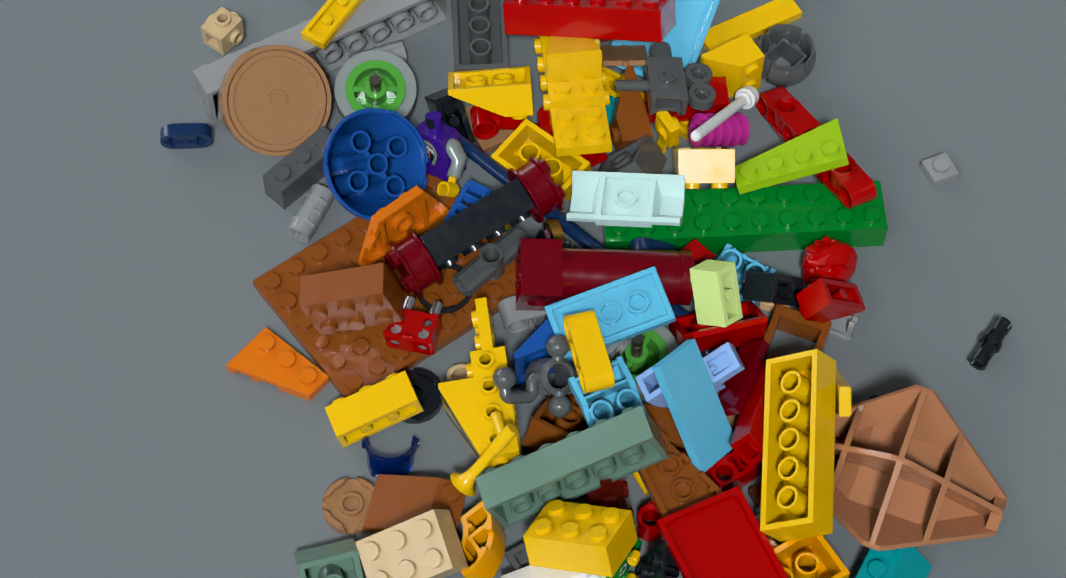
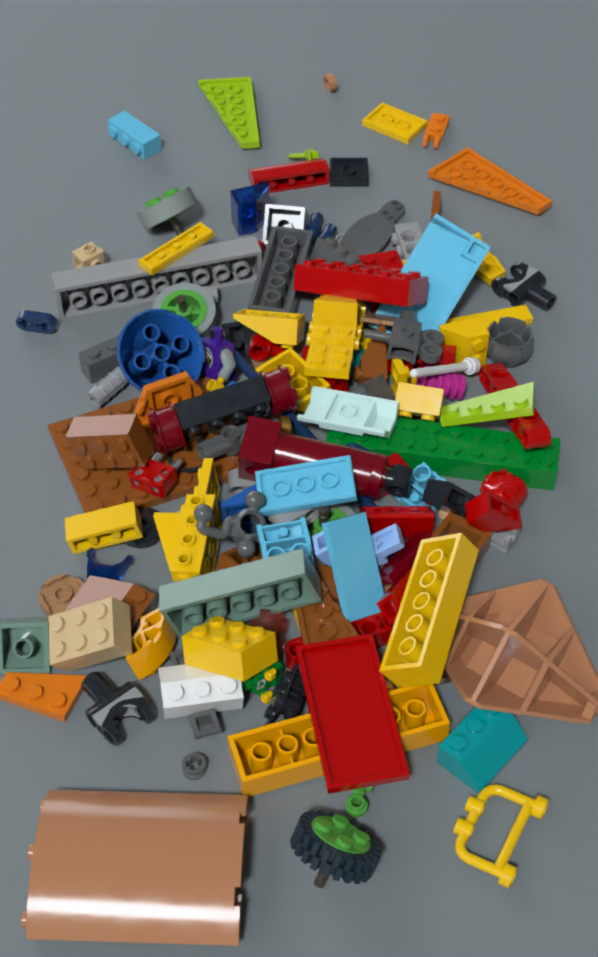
camera: 15 degrees right, 10 degrees down
(274, 99) = (102, 300): medium nougat brick -> none
(278, 364) = (45, 486): orange wing -> none
(504, 434) = (151, 589): yellow piece -> none
(588, 351) = (277, 507): yellow beam -> none
(716, 293) = (397, 486): yellowish green brick -> none
(843, 396) = (478, 579): yellow tile -> none

